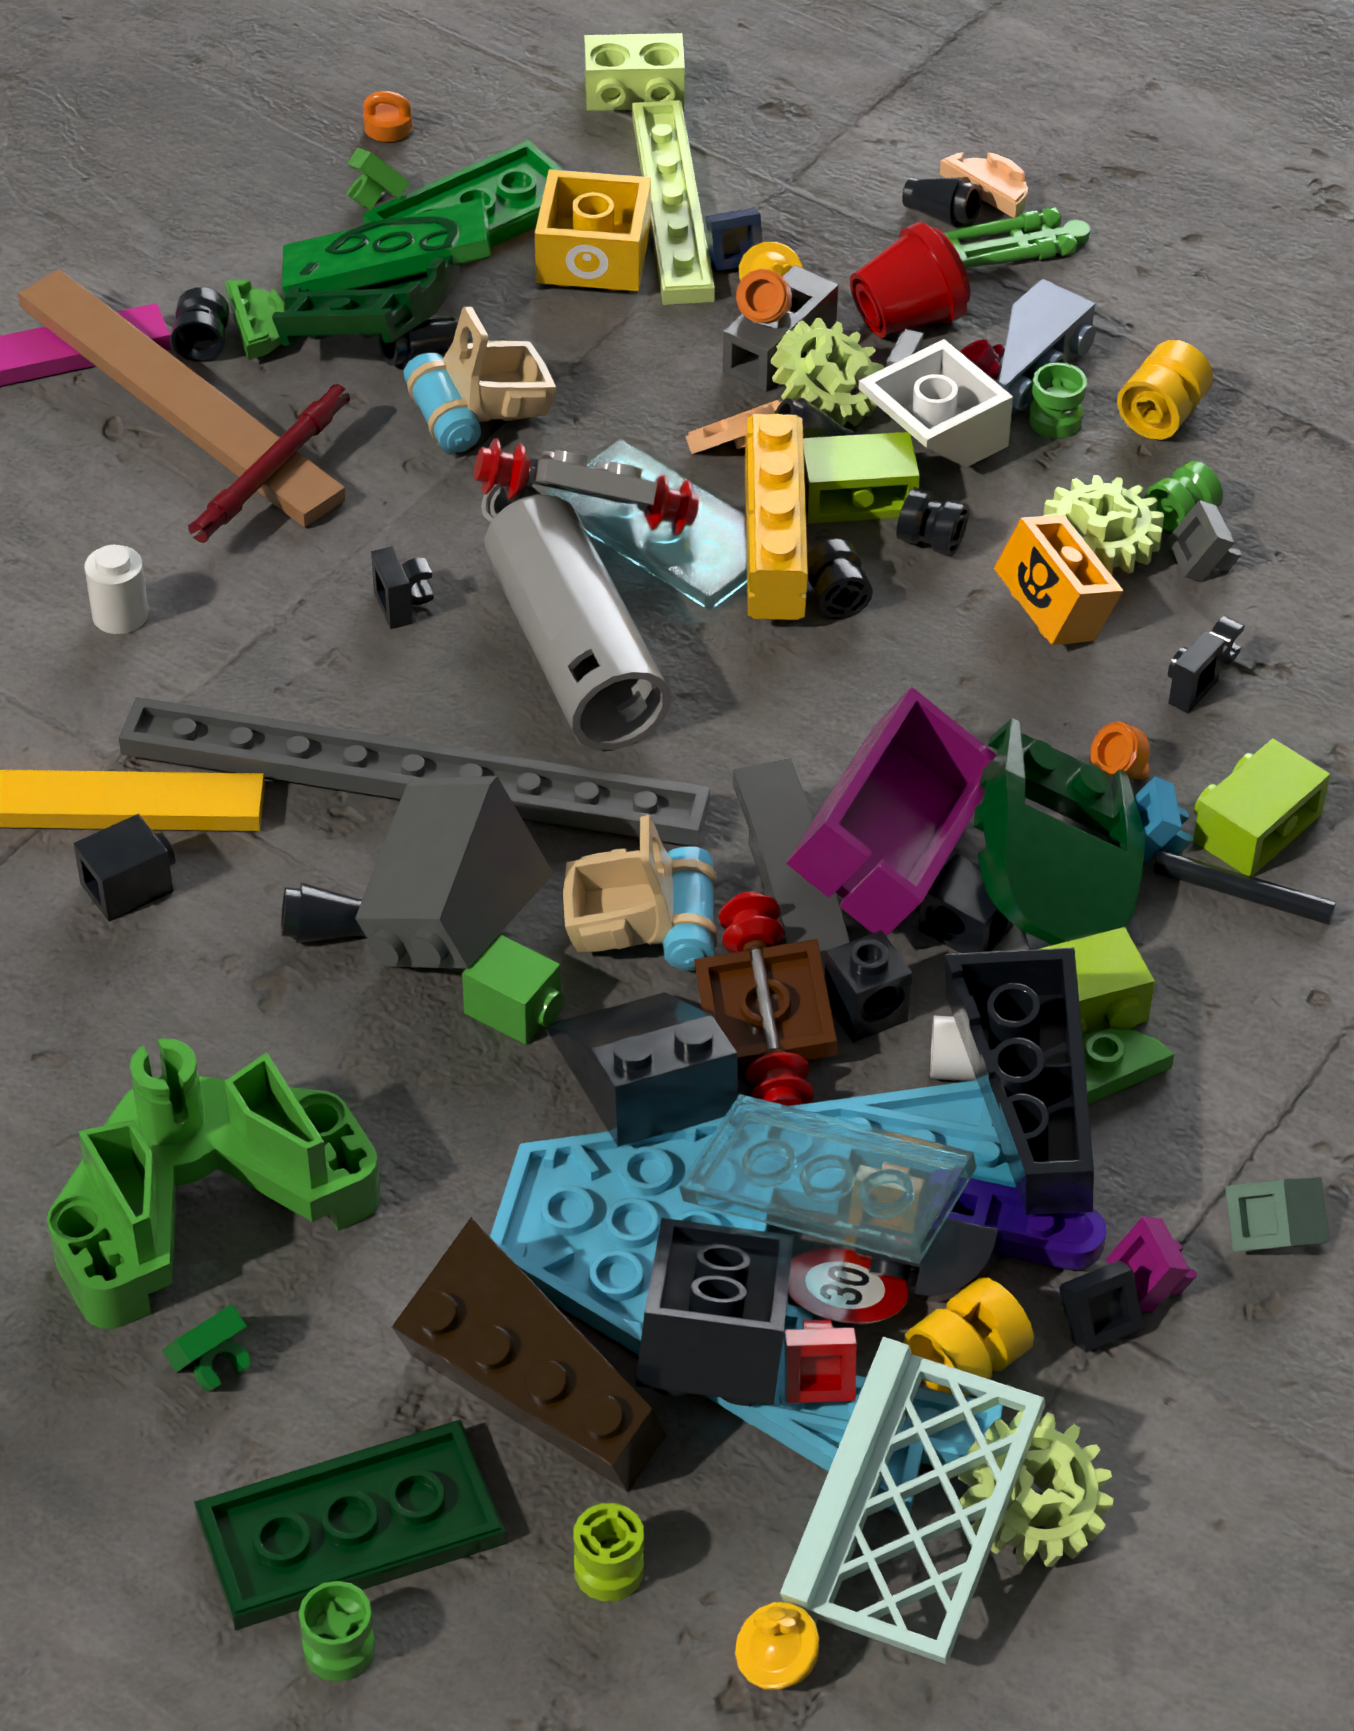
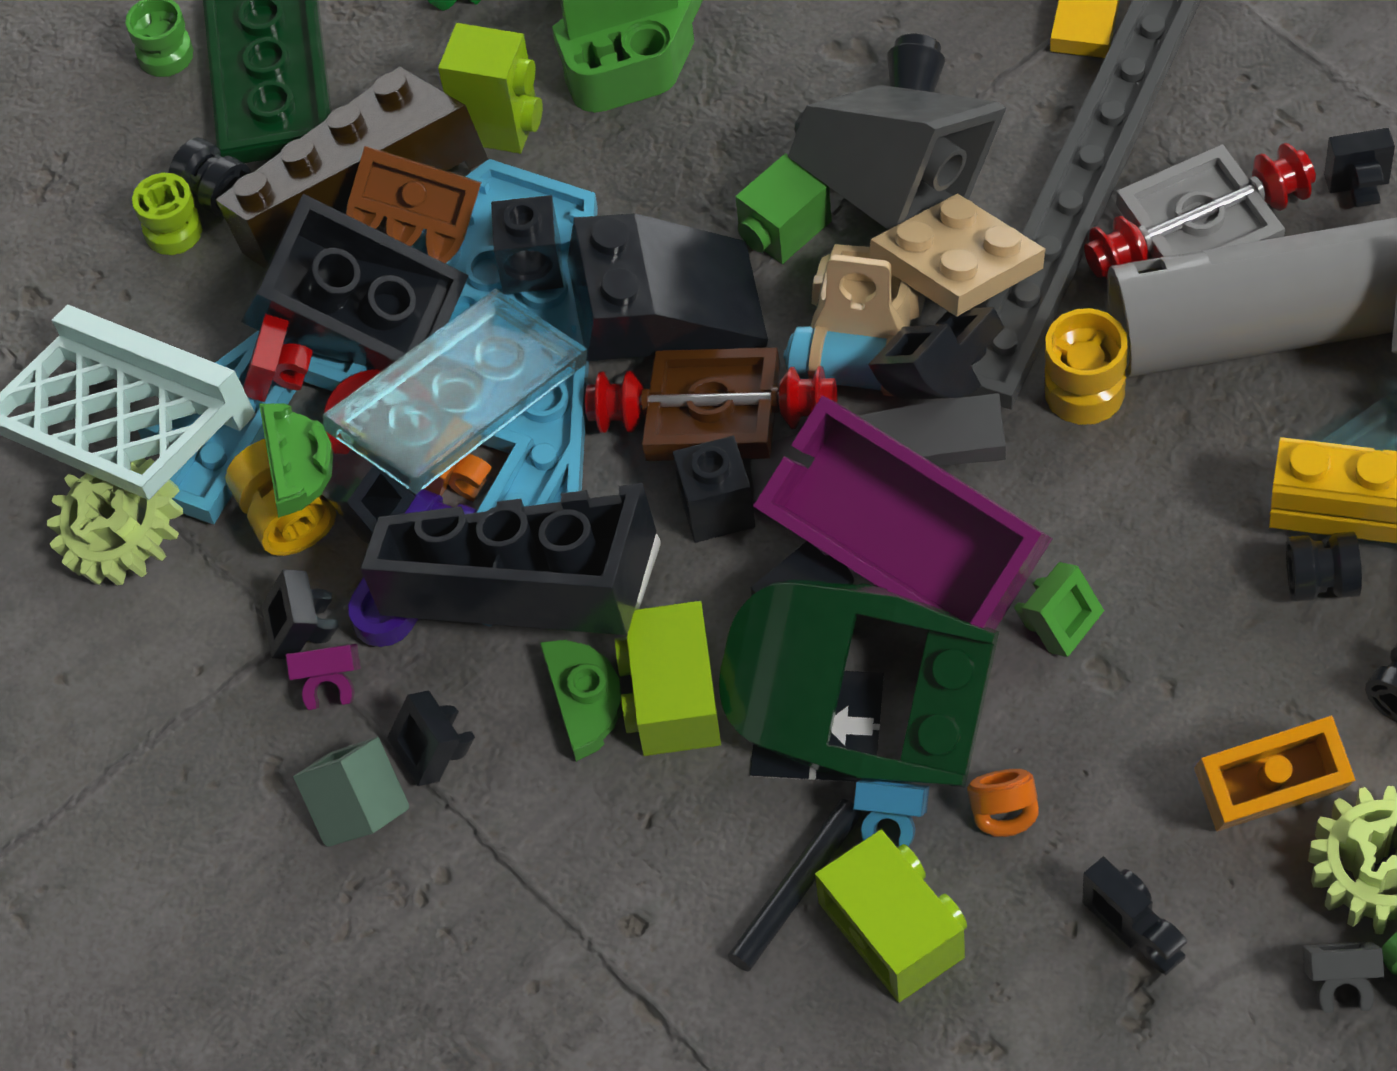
camera: 110 degrees right, 10 degrees up
(403, 1235) = (495, 82): none -> lime brick
(468, 687) = (1201, 207): none -> light grey plate
(543, 1527) = (207, 171): none -> black wheel
(581, 820) = (957, 254): none -> tan plate
(590, 1268) = (413, 200): none -> dark orange plate
(627, 1156) = (527, 244): none -> black brick
(670, 732) = (1085, 366): none -> yellow wheel
(696, 813) = (937, 357): none -> black brick
(777, 1646) = (33, 318): yellow hat -> none
(960, 1278) = (297, 456): none -> bright green plate
(1202, 1164) = (426, 737): none -> black tile

